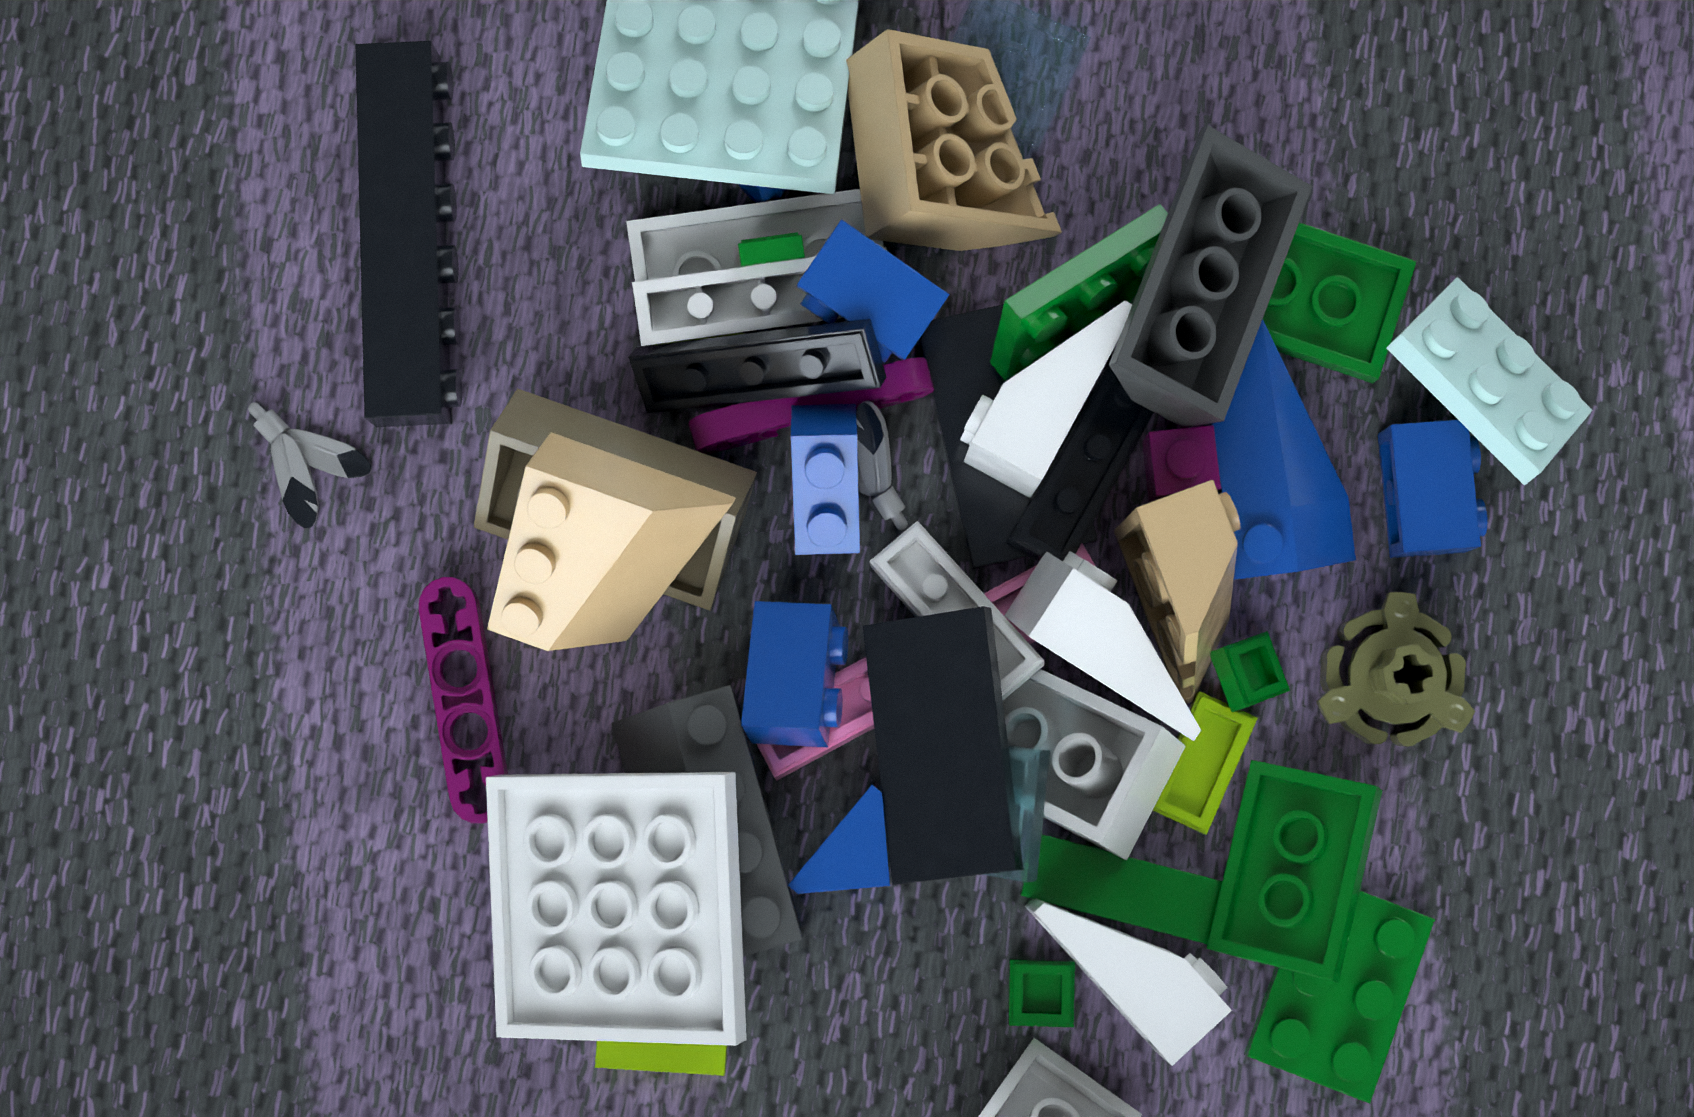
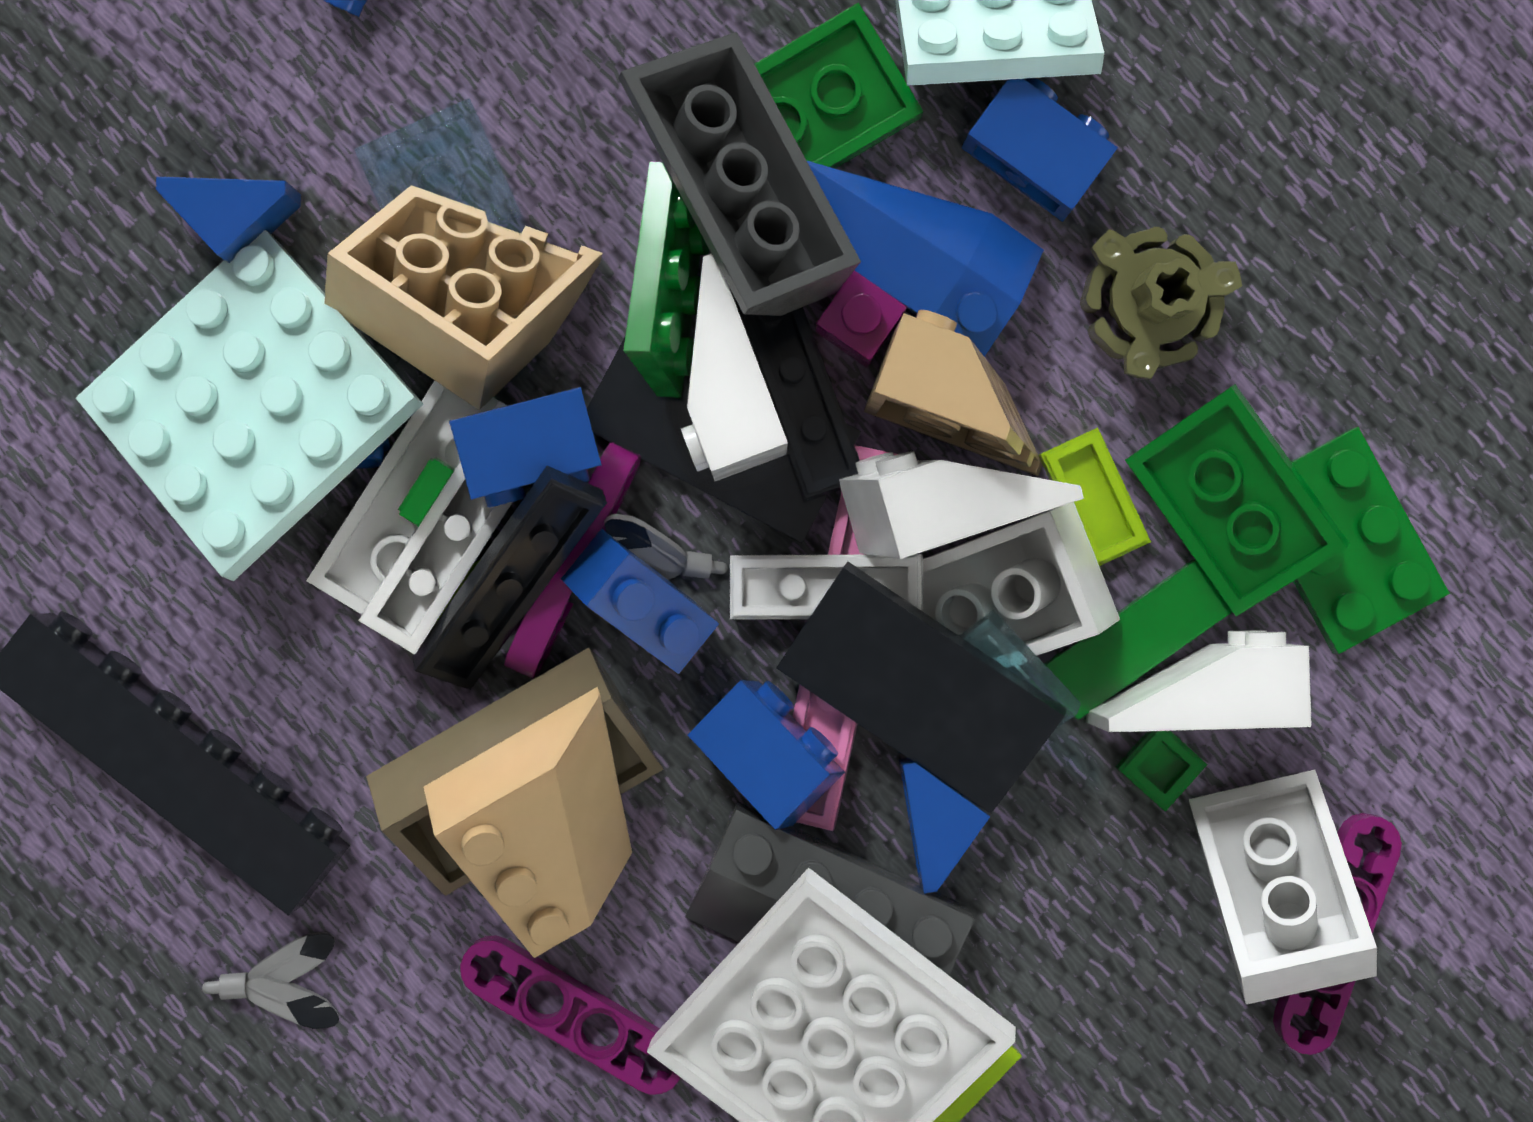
camera: 50 degrees left, 5 degrees up
(1249, 671) = (1058, 403): green tile -> none

